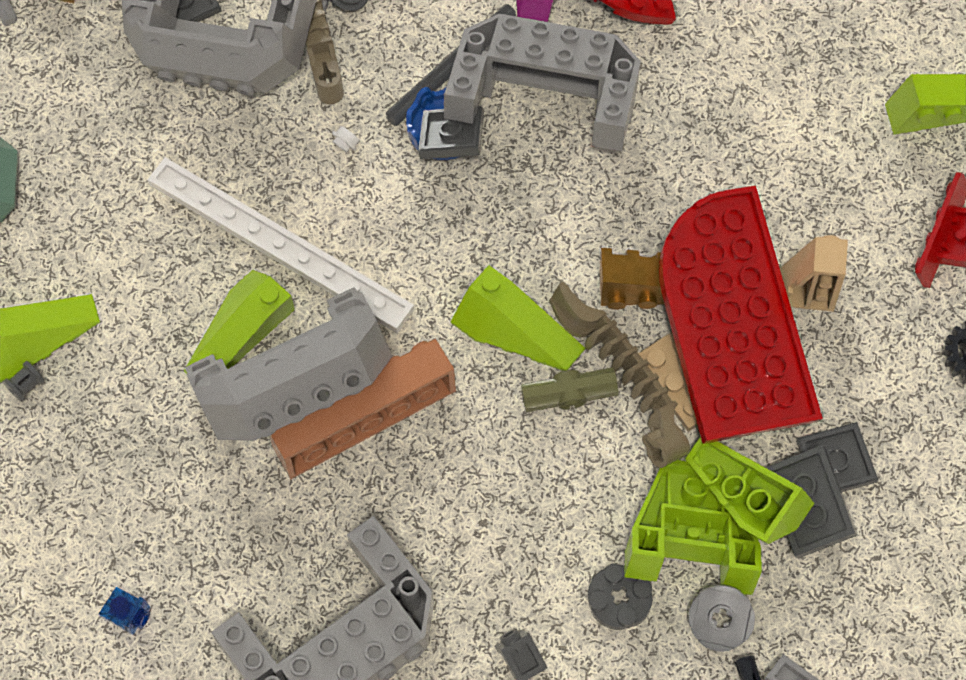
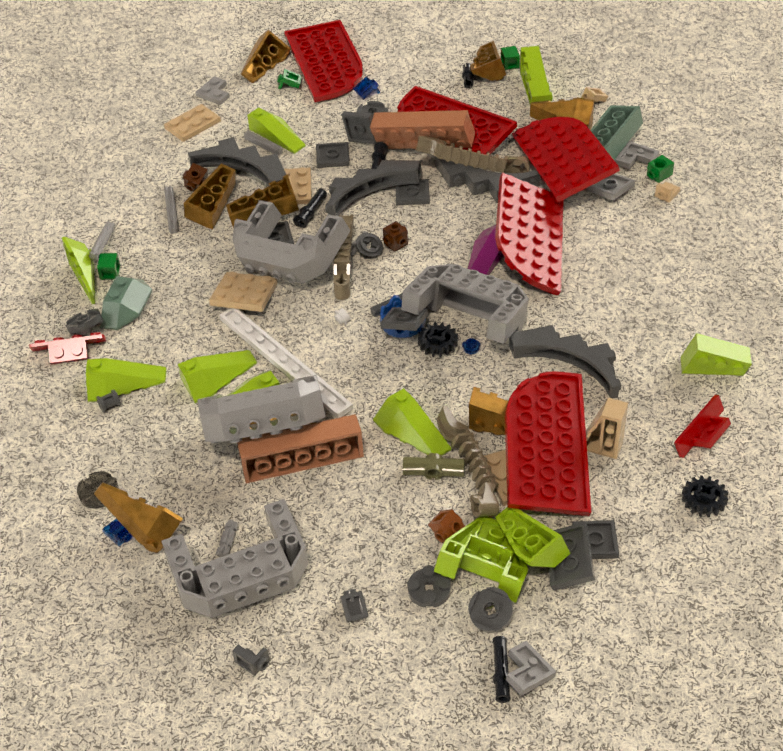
camera: 15 degrees right, 20 degrees down
(51, 537) = (86, 487): none -> clear smoke plate
(171, 124) = (243, 291): none -> tan plate
(174, 291) = (209, 373): none -> lime wedge
(174, 603) = (141, 520): none -> pearl gold wedge
(295, 585) = (227, 538): none -> light grey axle
(510, 164) = (437, 339): none -> black gear
(564, 159) = (471, 346): none -> clear blue plate
(621, 493) = (446, 524): none -> dark orange brick
(724, 130) = (546, 343): none -> dark grey arch

